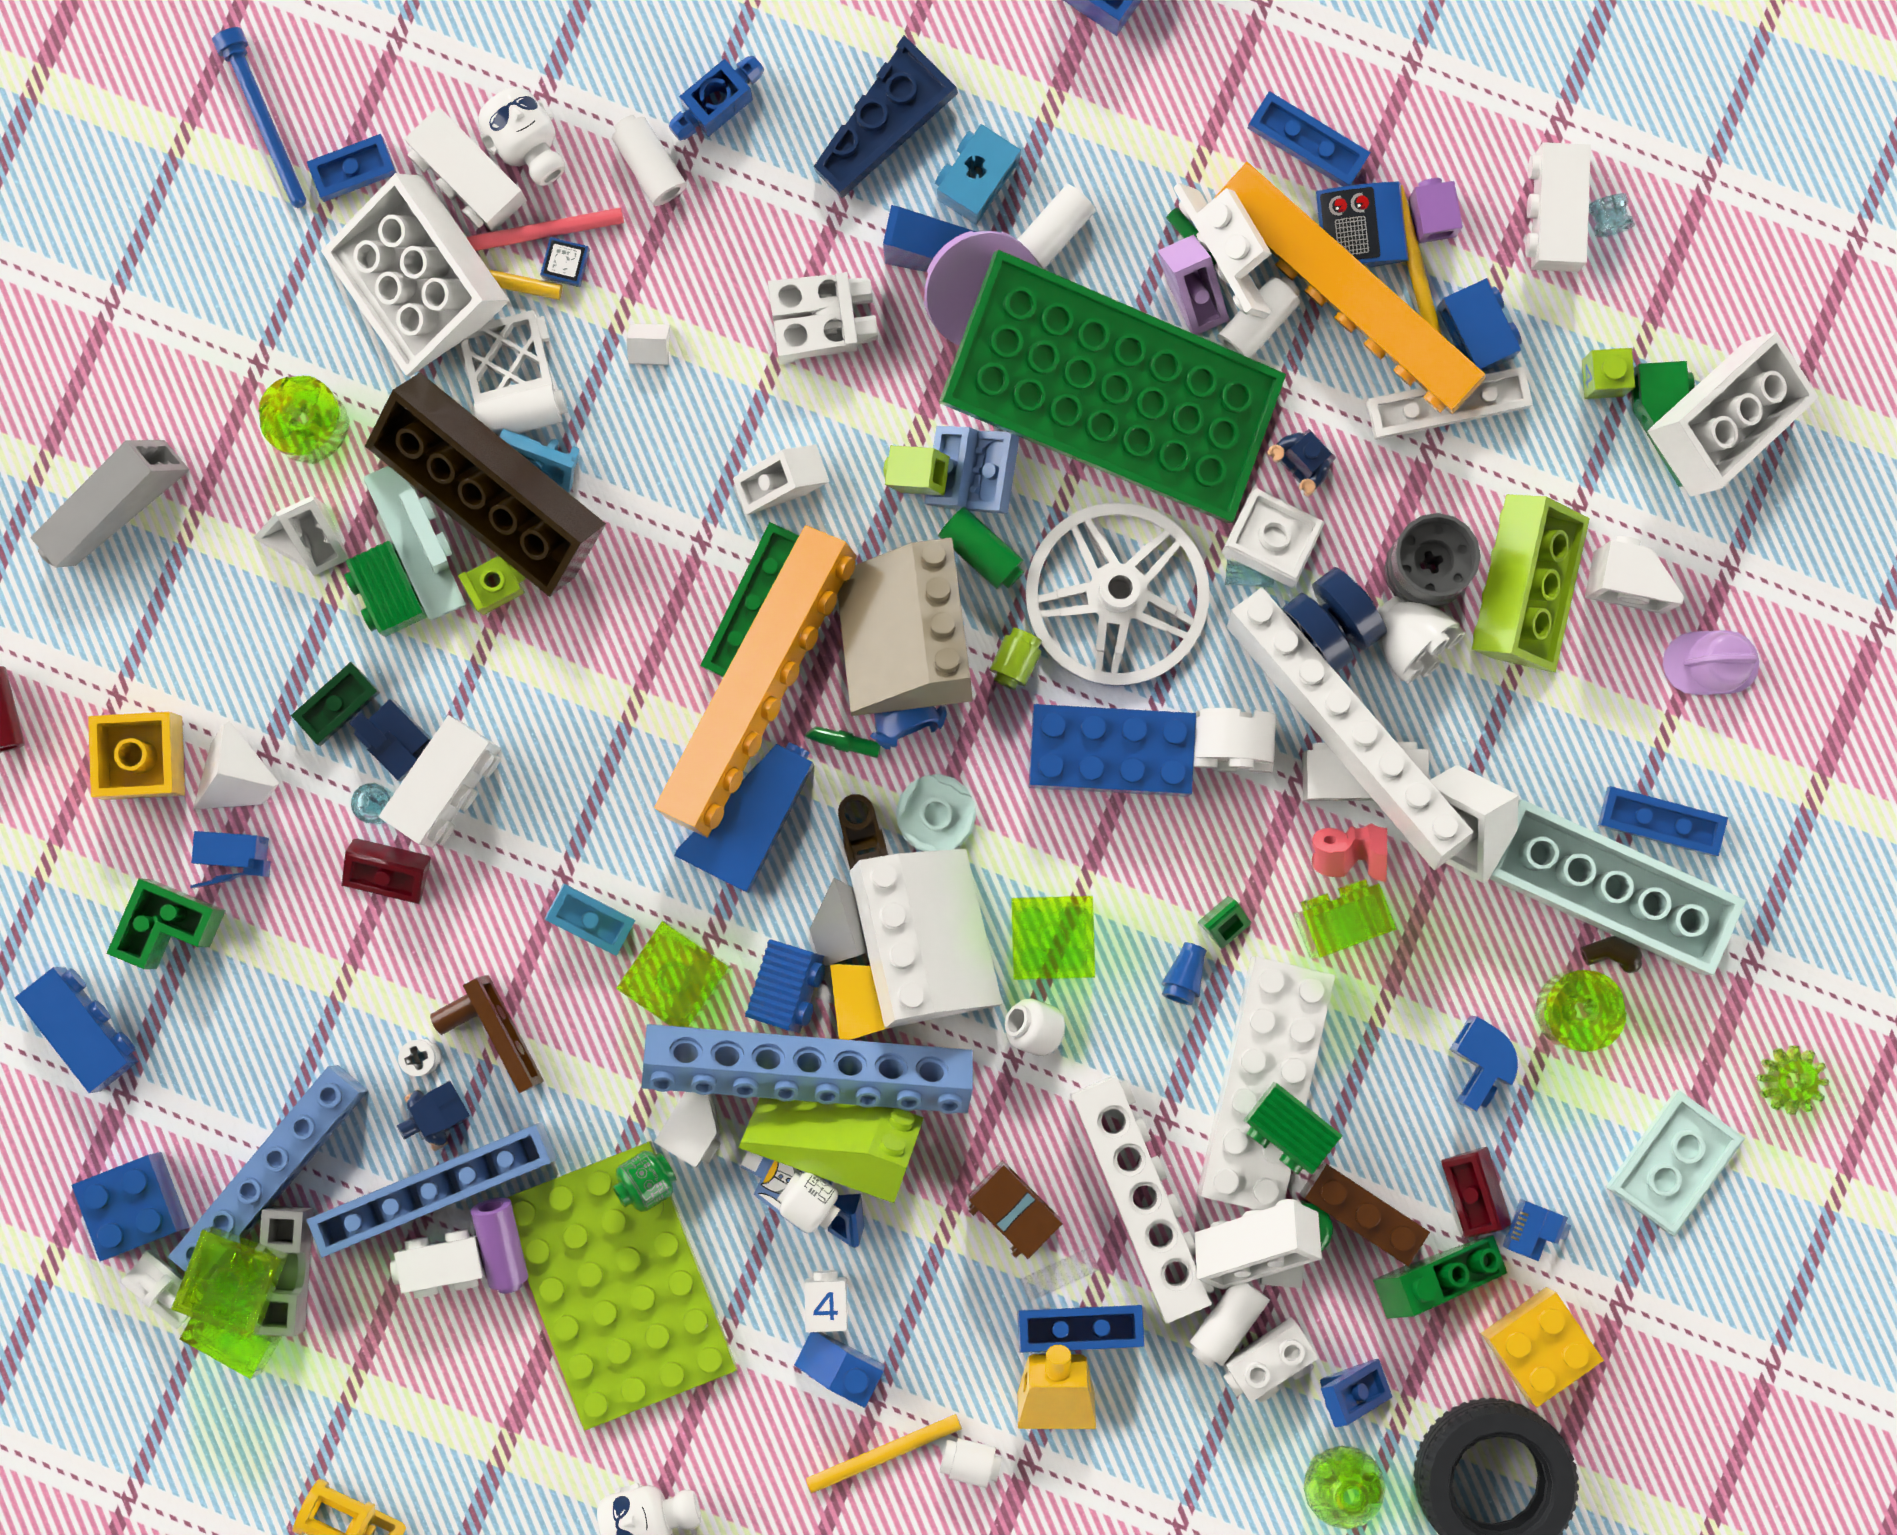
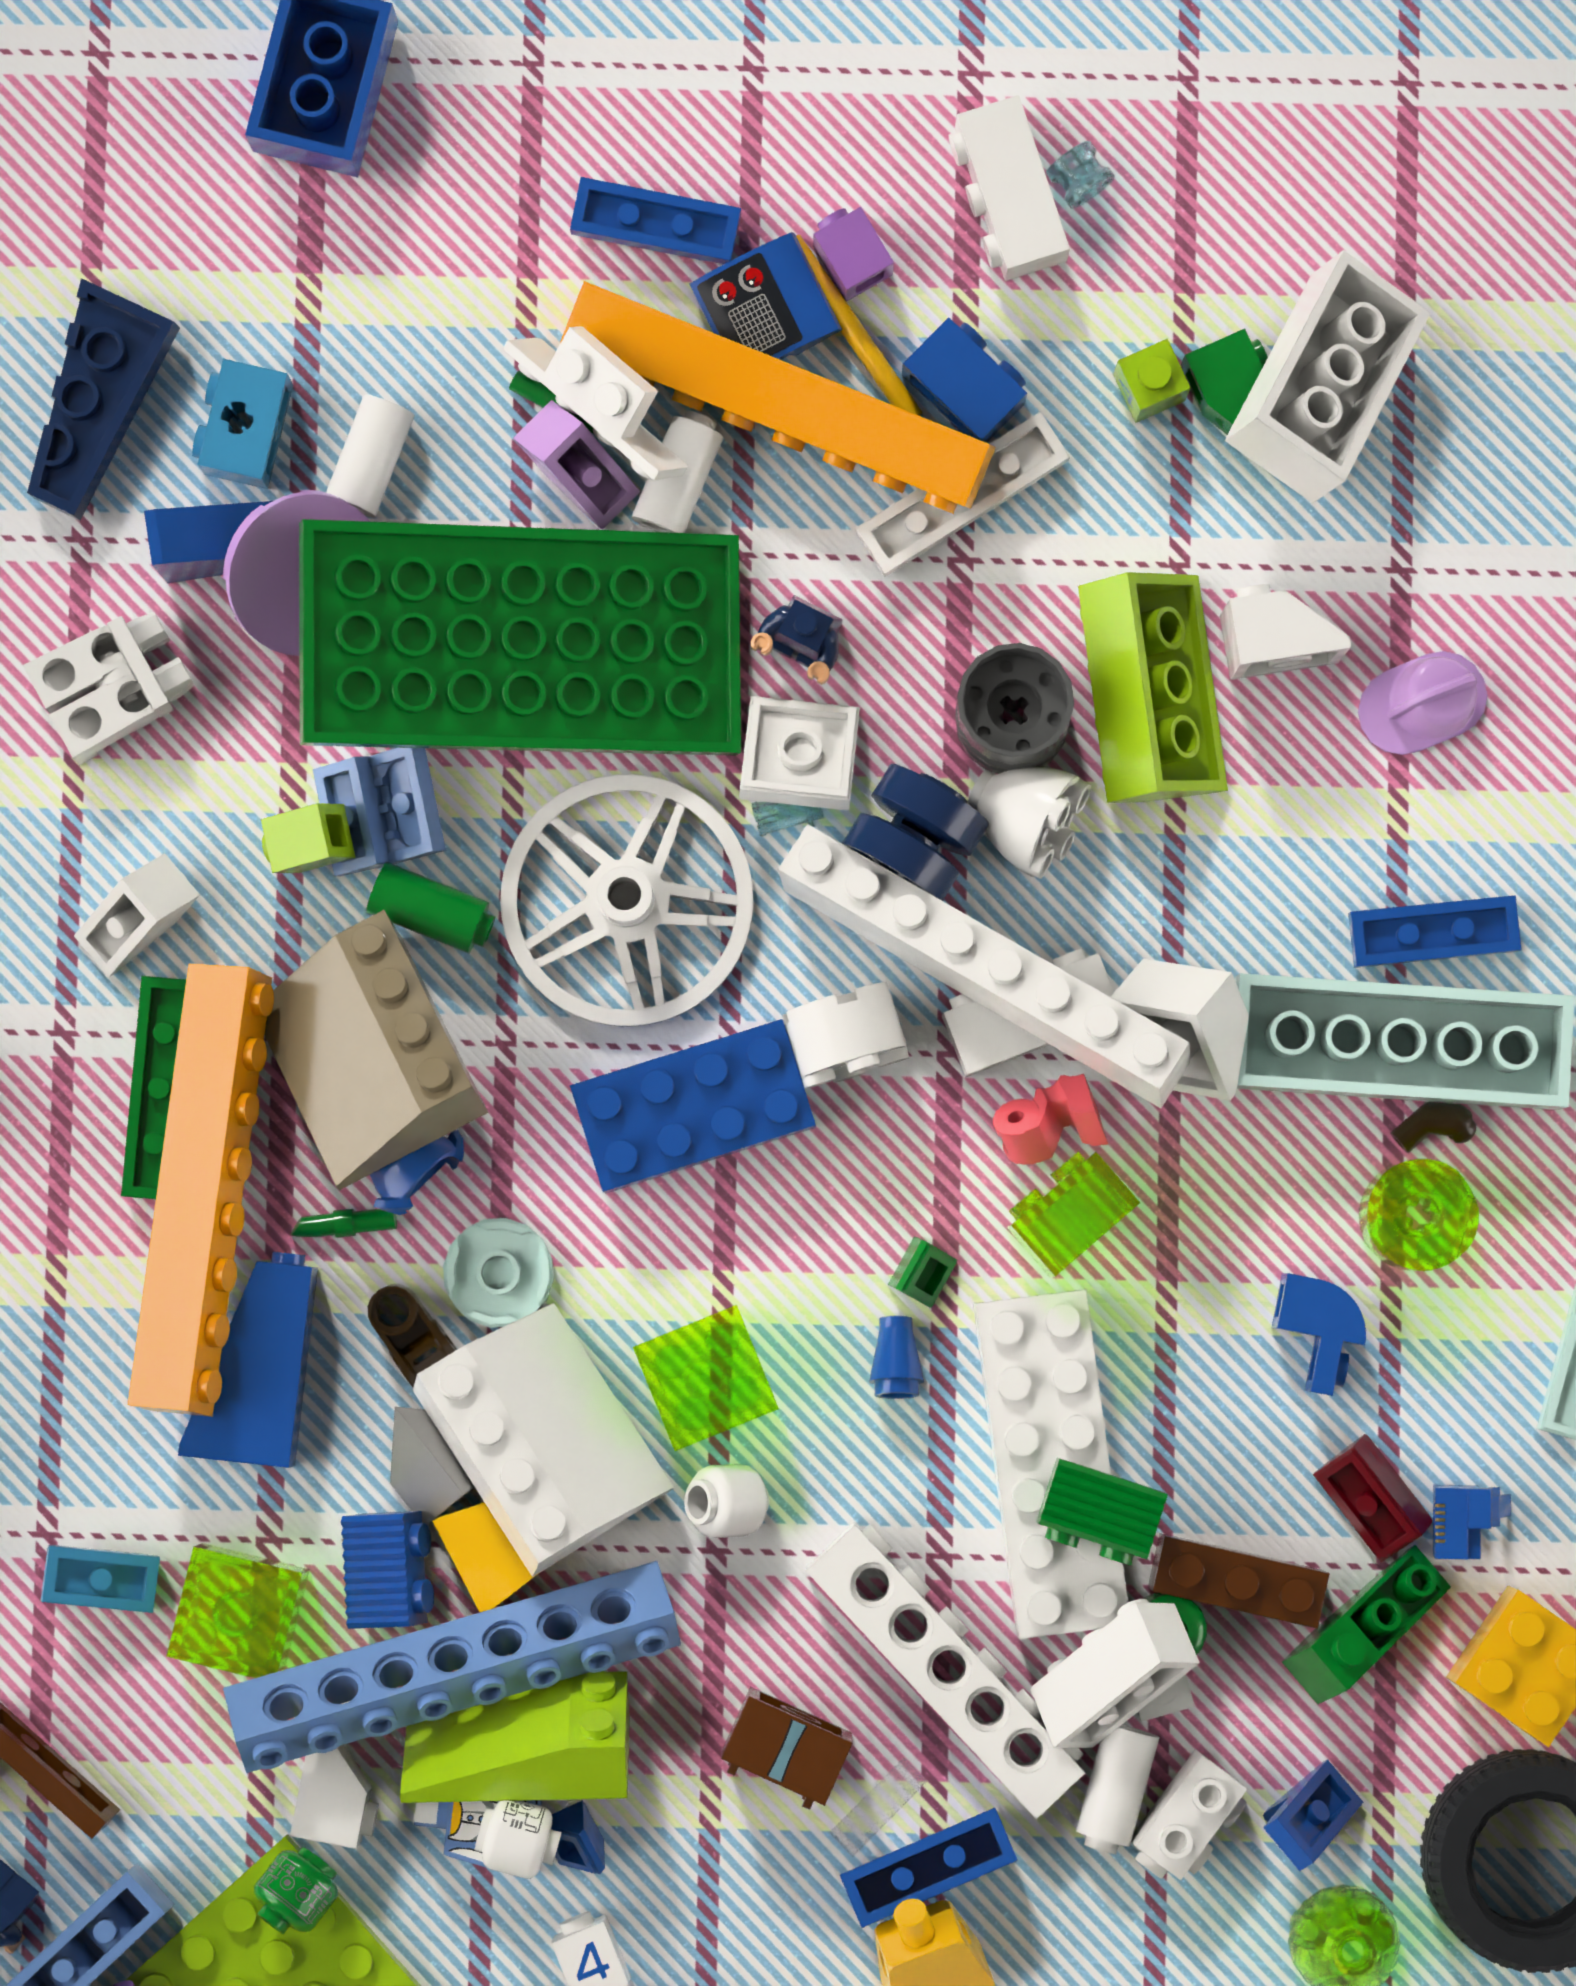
camera: 20 degrees left, 0 degrees up
(1016, 658) = (526, 1033): lime brick -> none

